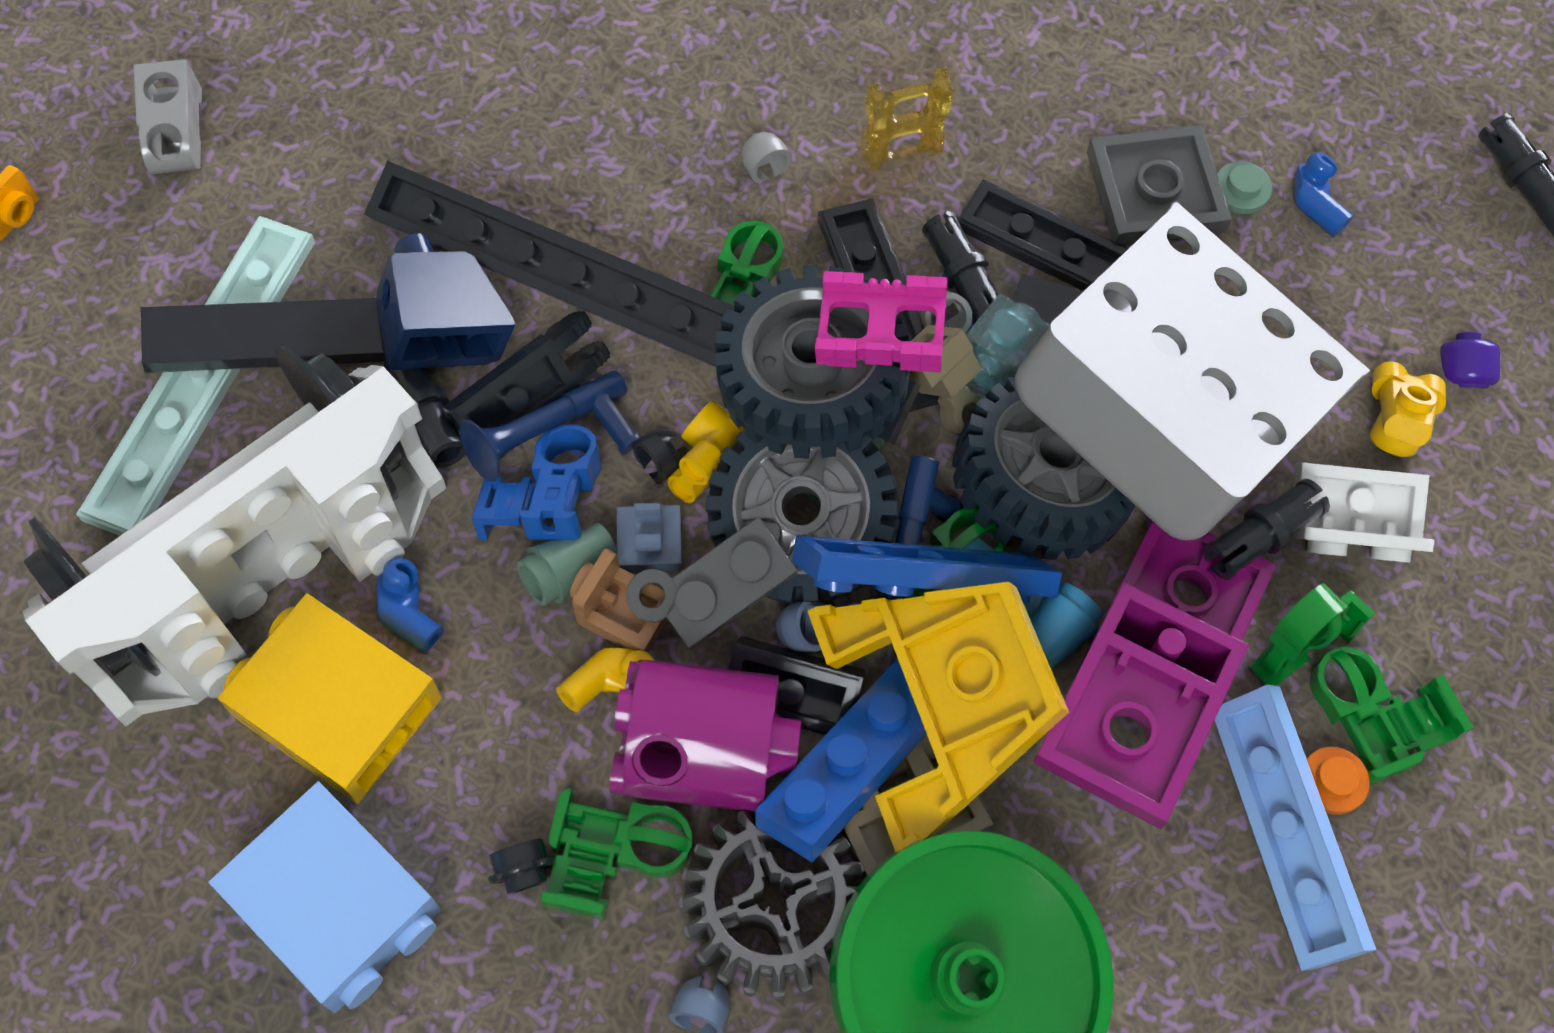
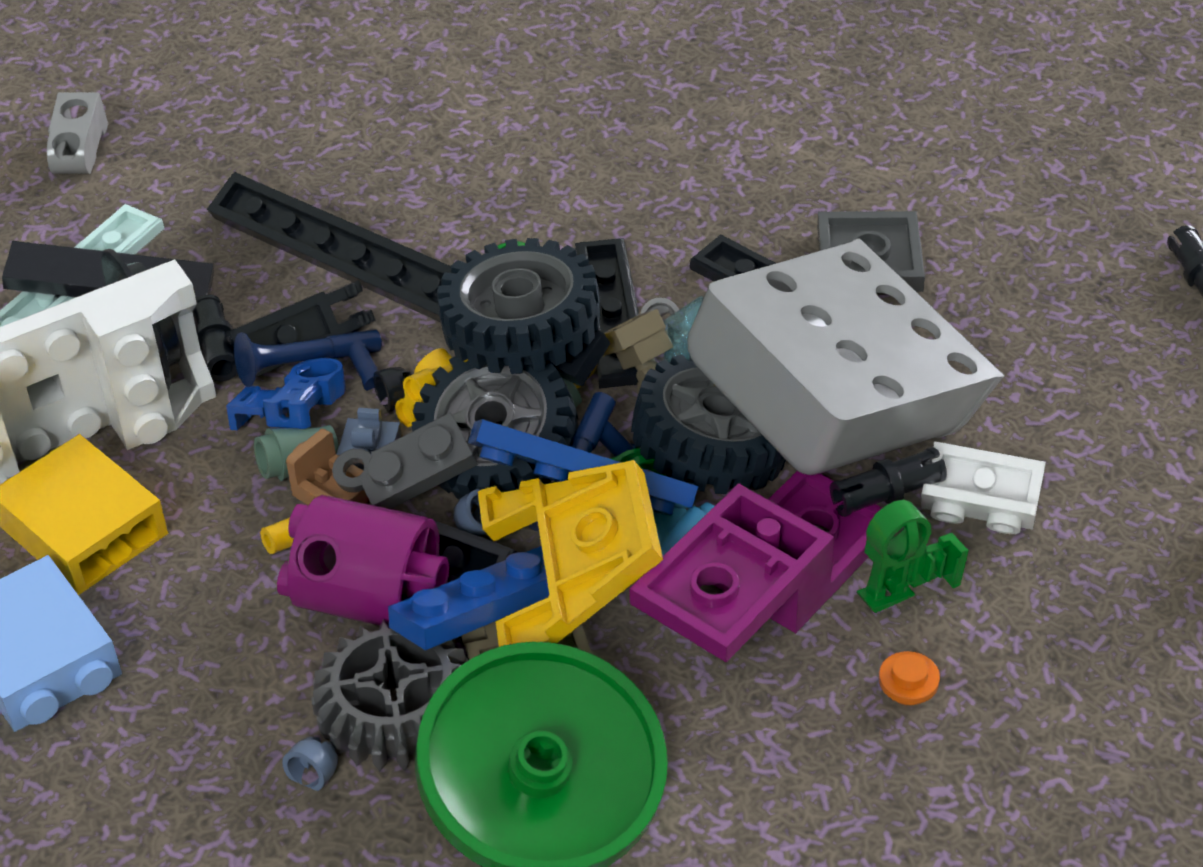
camera: 15 degrees right, 20 degrees down
(399, 605) = (153, 465): blue arm -> none
(439, 309) = (244, 269): torso -> none
(521, 866) = (194, 645): black plate -> none
(592, 842) = (261, 637): green piece -> none
(765, 149) = (542, 198): light grey hinge -> none
(883, 304) = (577, 260): dark pink piece -> none
(884, 127) = (642, 184): clear yellow piece -> none
(961, 263) = (680, 277): black pin -> none
(1245, 187) = (945, 261): sand green plate -> none
(1292, 830) = (858, 704): light blue plate -> none
(1314, 197) = (1008, 272): blue arm -> none
(1392, 729) = (974, 651): green piece -> none
(1406, 408) = (1044, 422): yellow plate -> none
(1471, 361) = (1120, 401): dark purple piece -> none

